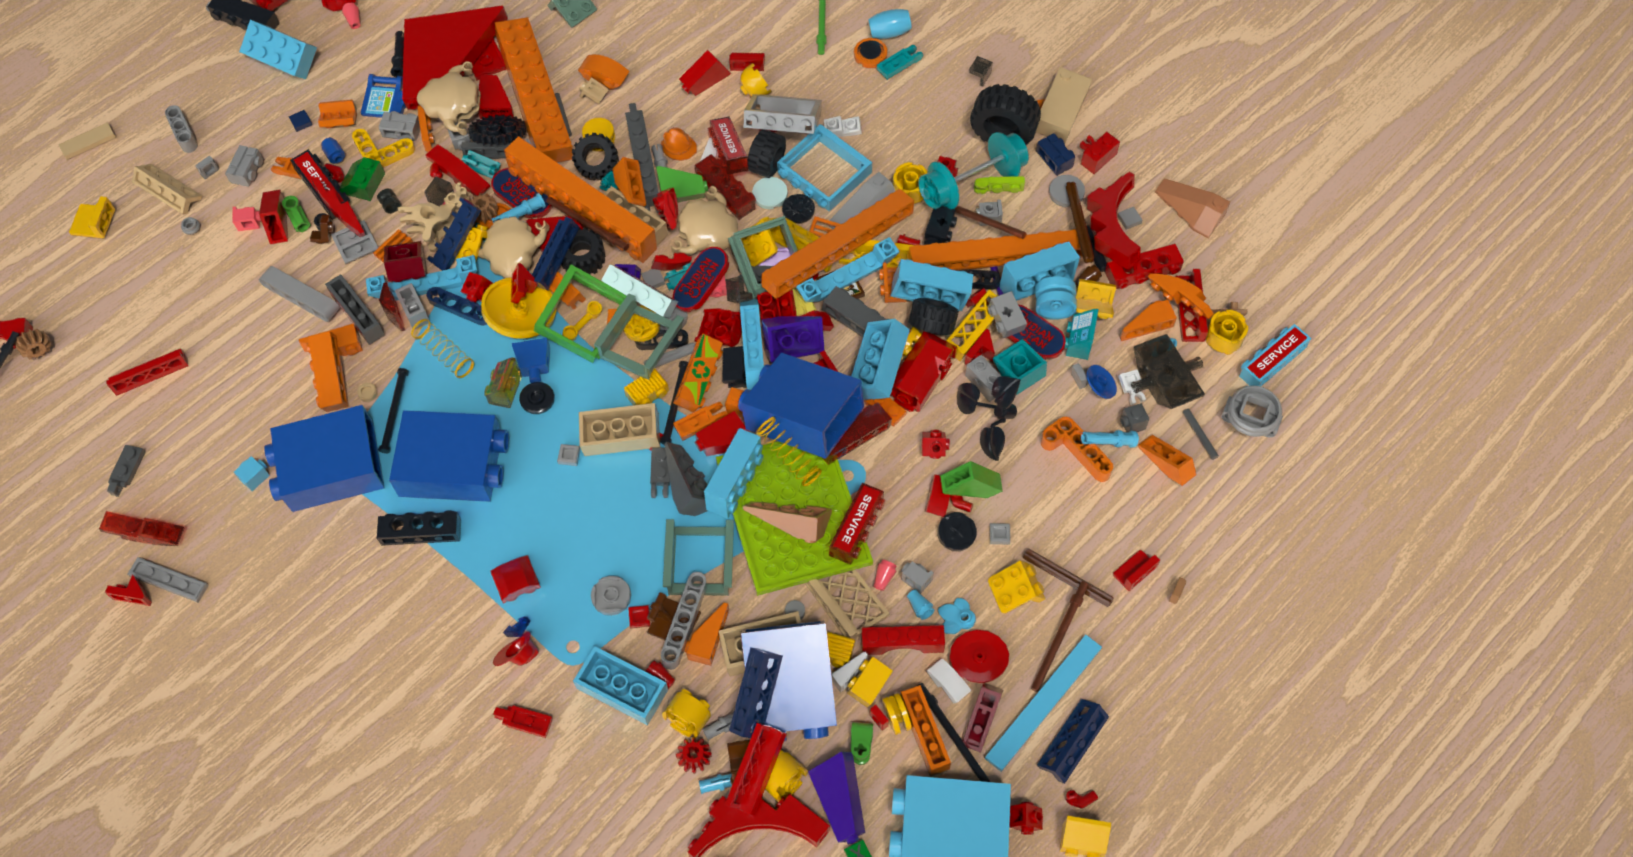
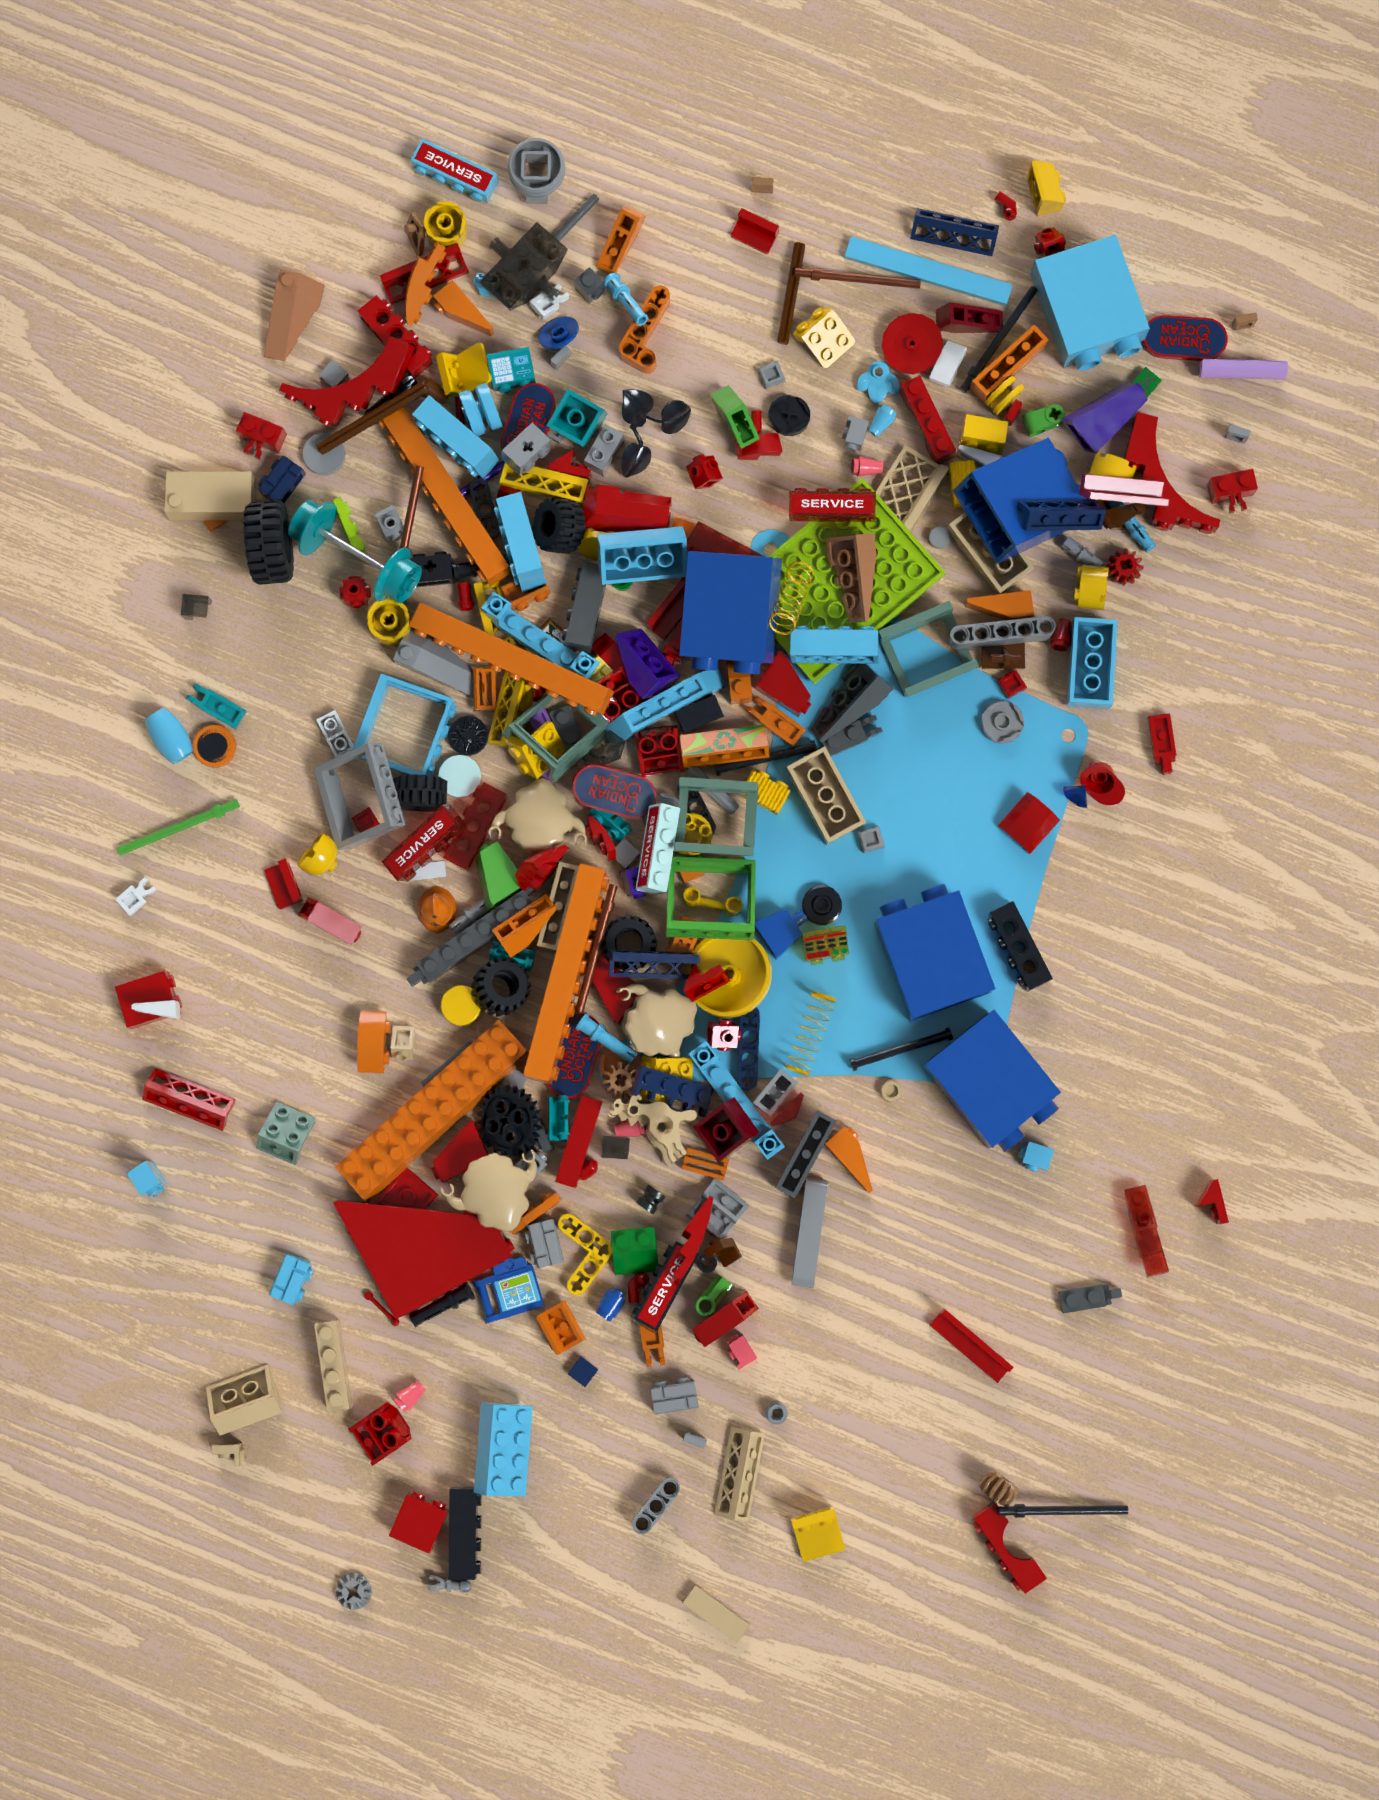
camera: 110 degrees left, 20 degrees up
(168, 580) = (1181, 1176): light grey tile -> none
(327, 371) = (893, 1137): orange brick -> none

